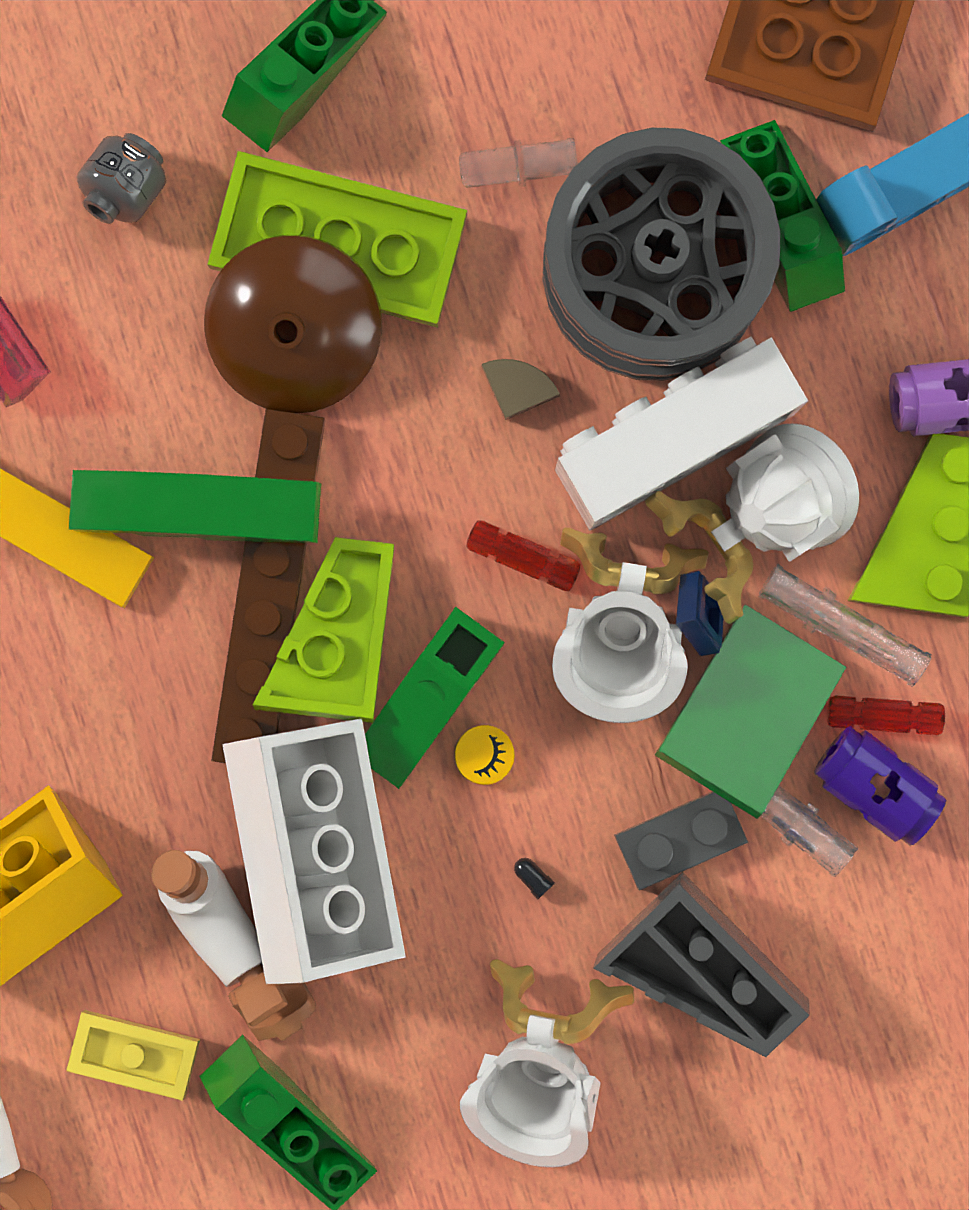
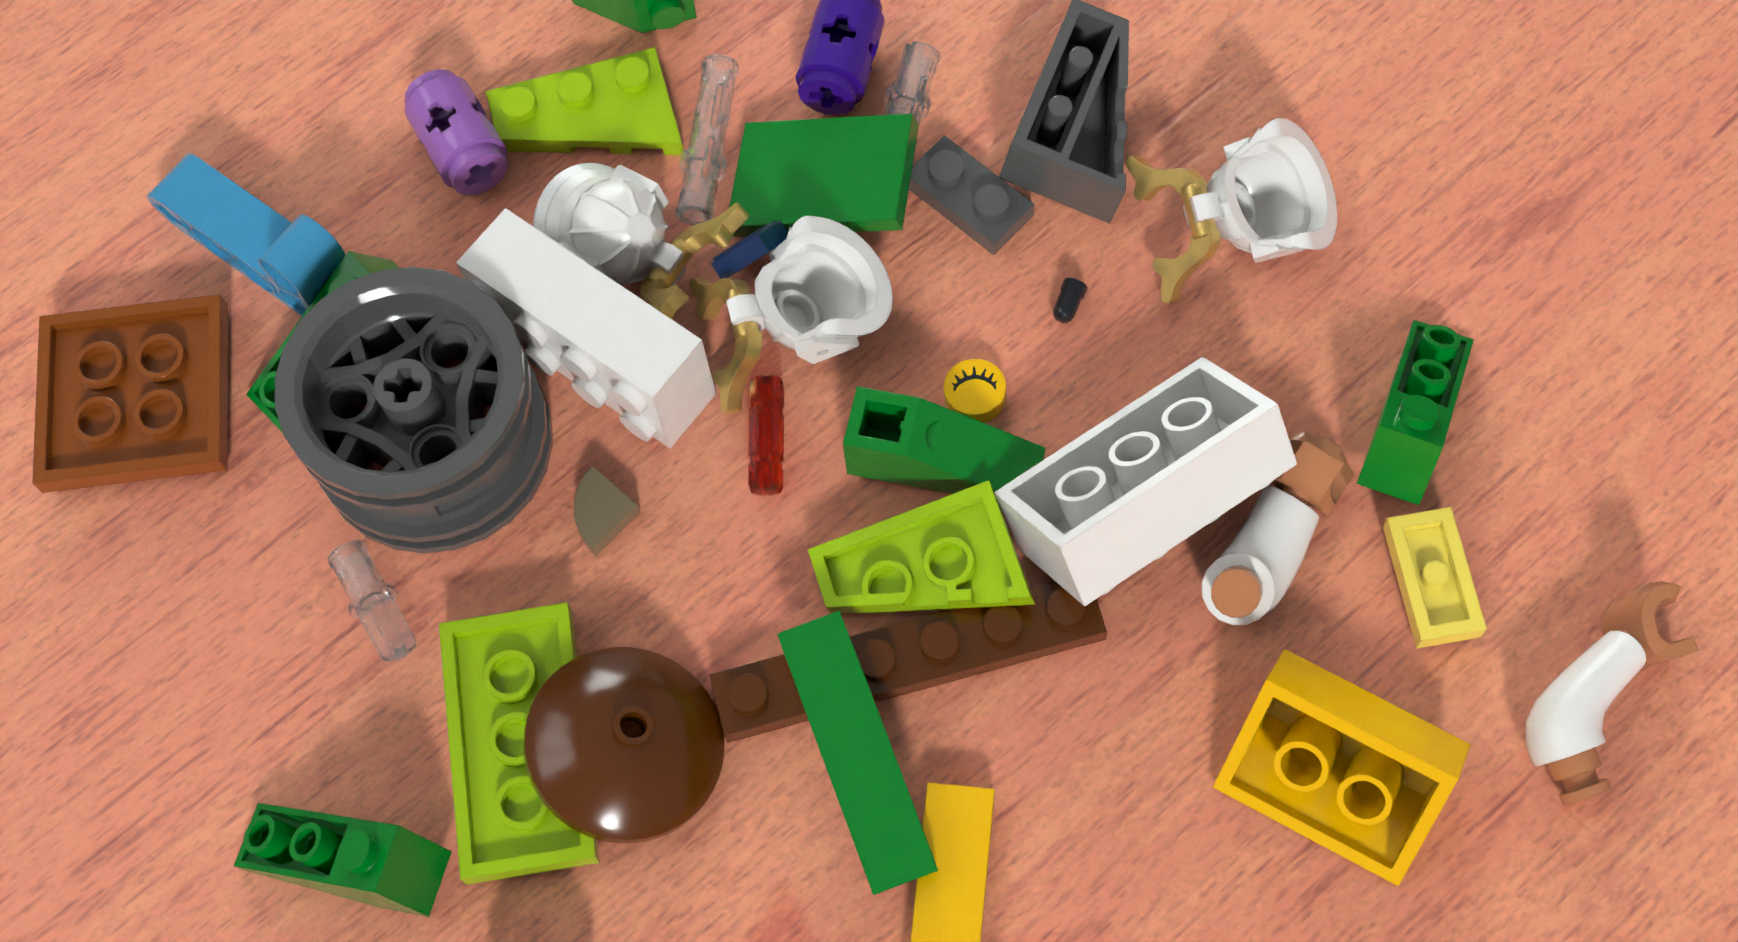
camera: 105 degrees left, 20 degrees down
(886, 715) = (773, 74): clear red axle -> none

